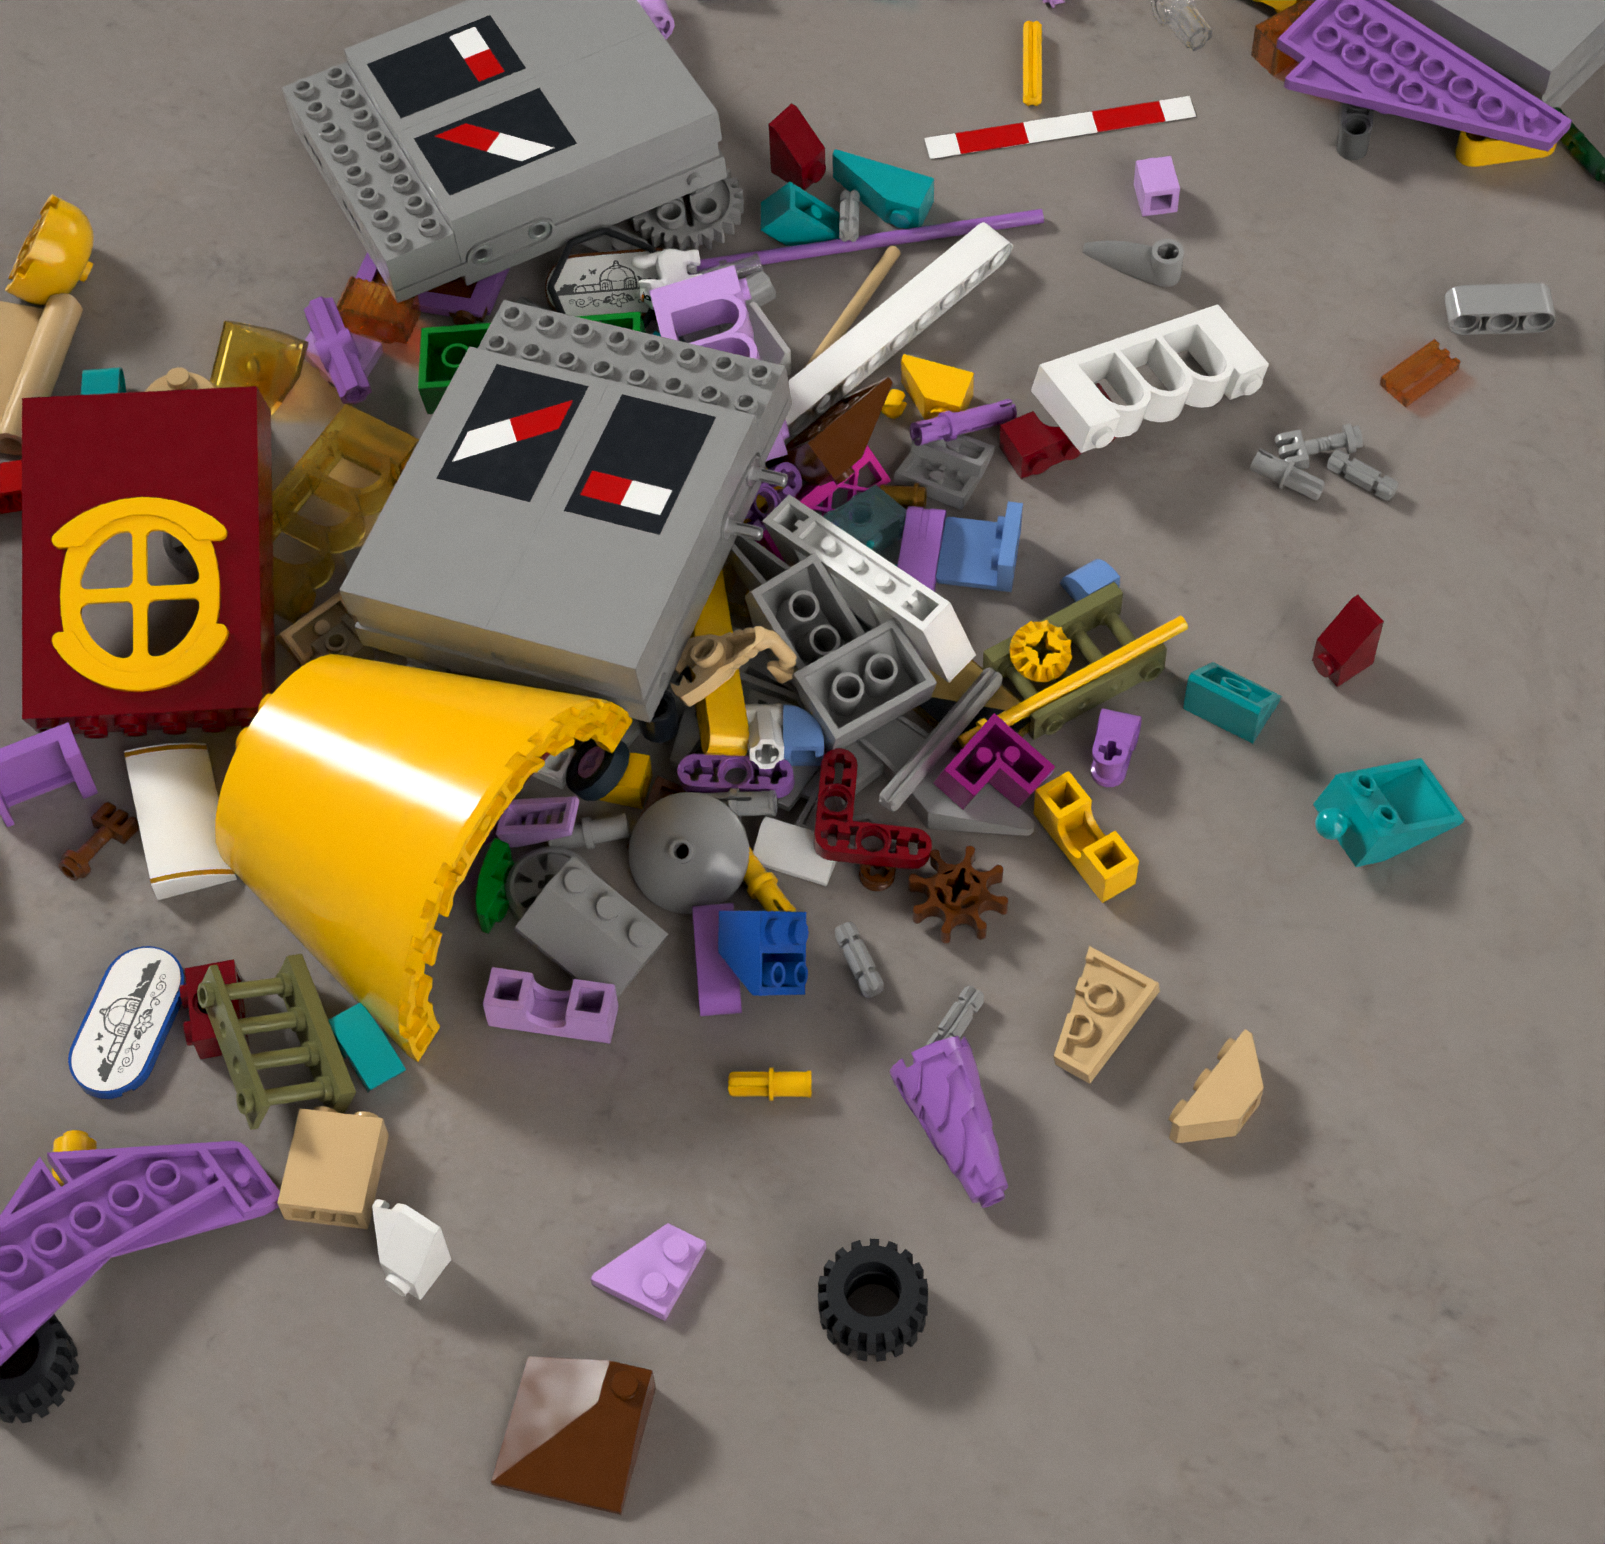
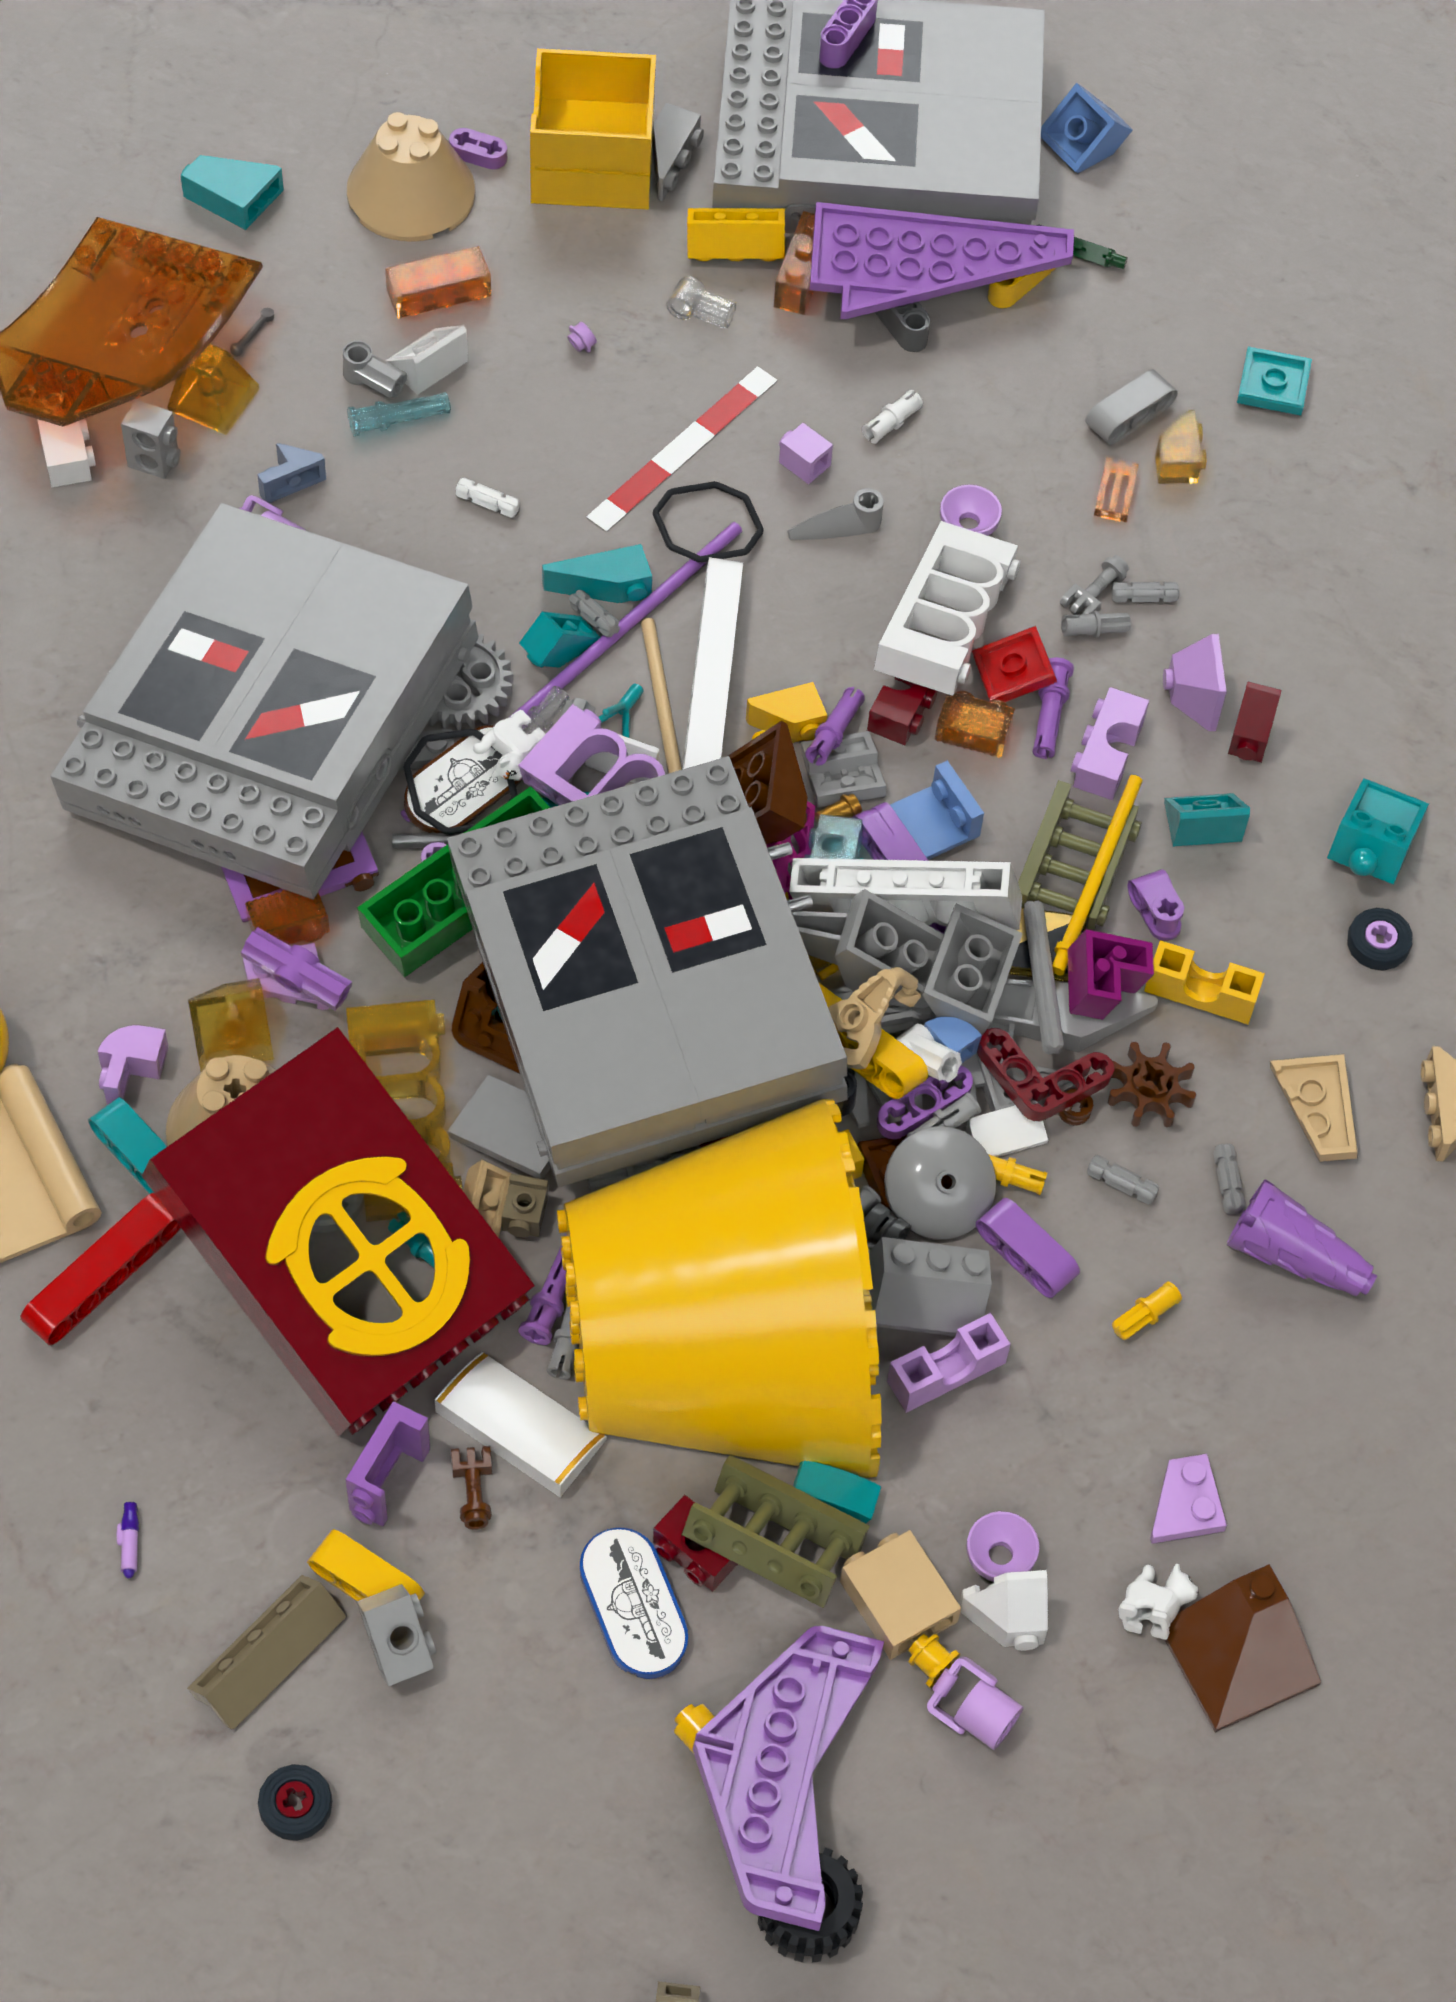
camera: 45 degrees left, 0 degrees up
(160, 340) = (130, 1052): none -> lavender brick
(305, 1310) = (985, 1711): none -> lavender piece
(309, 1240) = (931, 1657): none -> yellow brick
(447, 1173) = (1002, 1530): none -> lavender piece
(531, 1334) = (1156, 1602): none -> white animal
(610, 861) = (881, 1224): none -> dark grey wheel
(765, 950) = (1064, 1212): blue slope -> none
(795, 149) = (511, 585): dark red slope -> none
(802, 304) = (623, 708): none -> teal plant
(853, 76) = (487, 497): none -> white axle
(873, 1266) = (1371, 1384): black tyre -> none
(1027, 661) = (1055, 878): yellow gear -> none
(1031, 162) = (703, 486): none -> black piece
(1032, 63) = (618, 406): yellow axle -> none
(1089, 579) = (1032, 792): medium blue brick -> none
(1093, 493) = (975, 723): none -> clear orange brick
(1172, 465) = (1014, 665): none -> red plate
(1189, 512) = (1052, 702): none -> medium lavender pin
(1225, 565) = (1100, 765): none -> lavender arch
(1261, 305) = (973, 503): none -> lavender piece
(1267, 199) = (892, 416): none -> white pin
(1299, 888) = (1396, 939): none -> black bush
(1331, 575) = (1198, 681): none -> lavender slope
(1508, 370) = (1179, 451): none -> clear yellow slope

